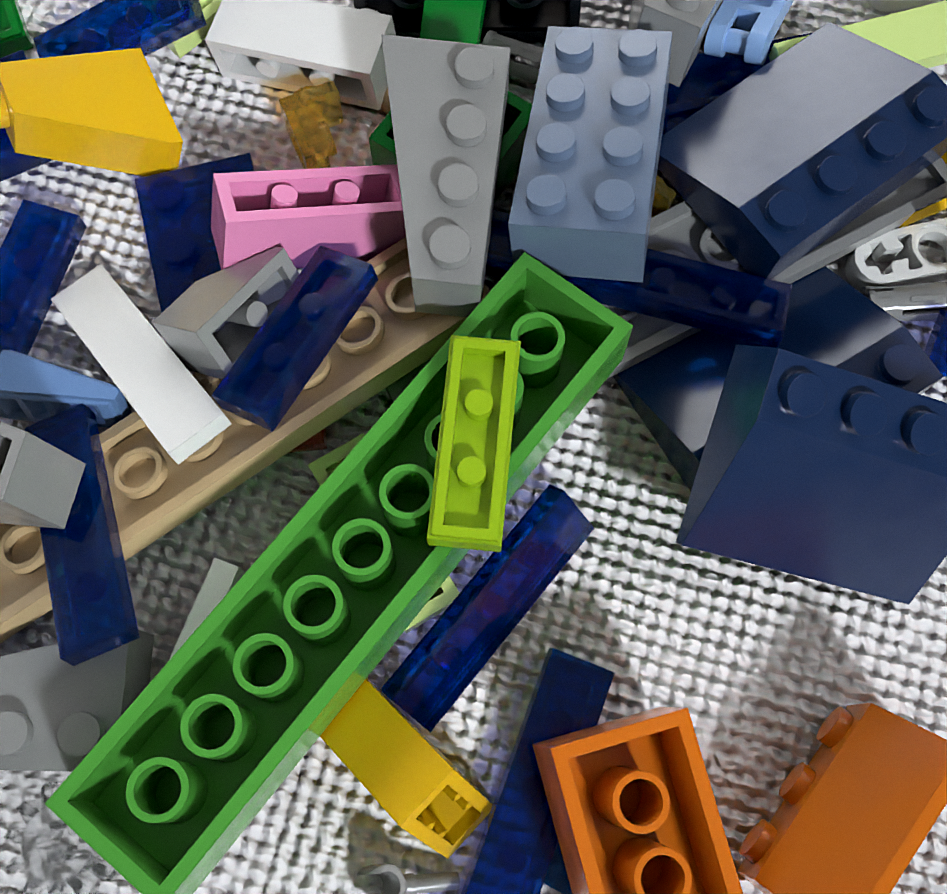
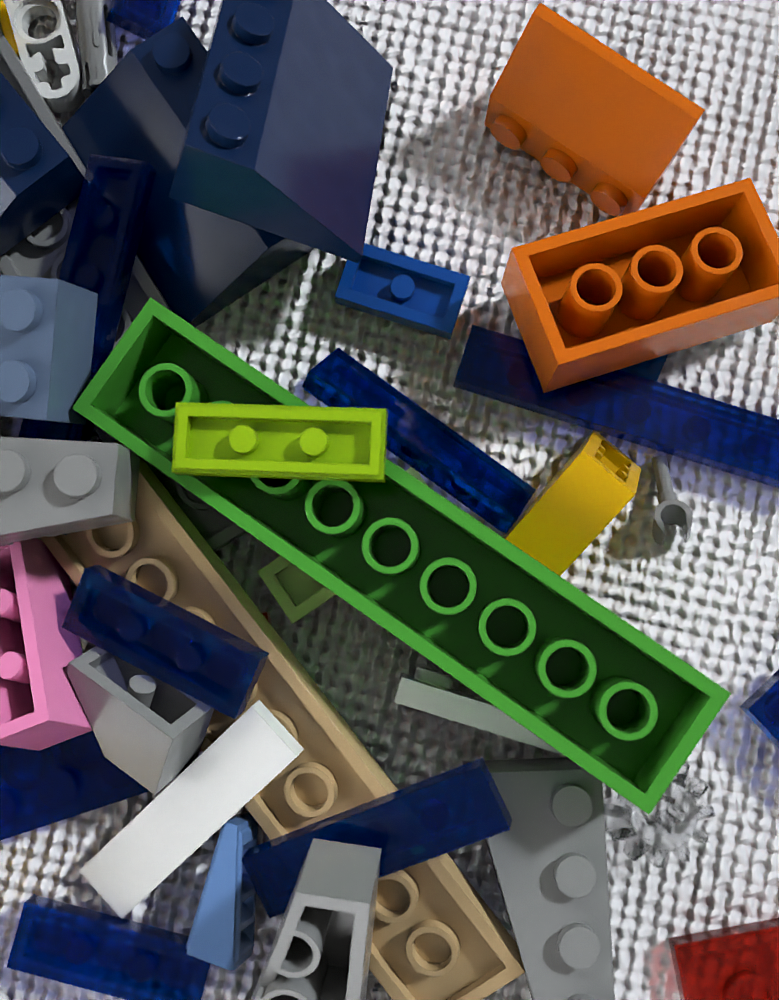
camera: 90 degrees left, 10 degrees up
(653, 600) = (403, 290): none -> blue plate

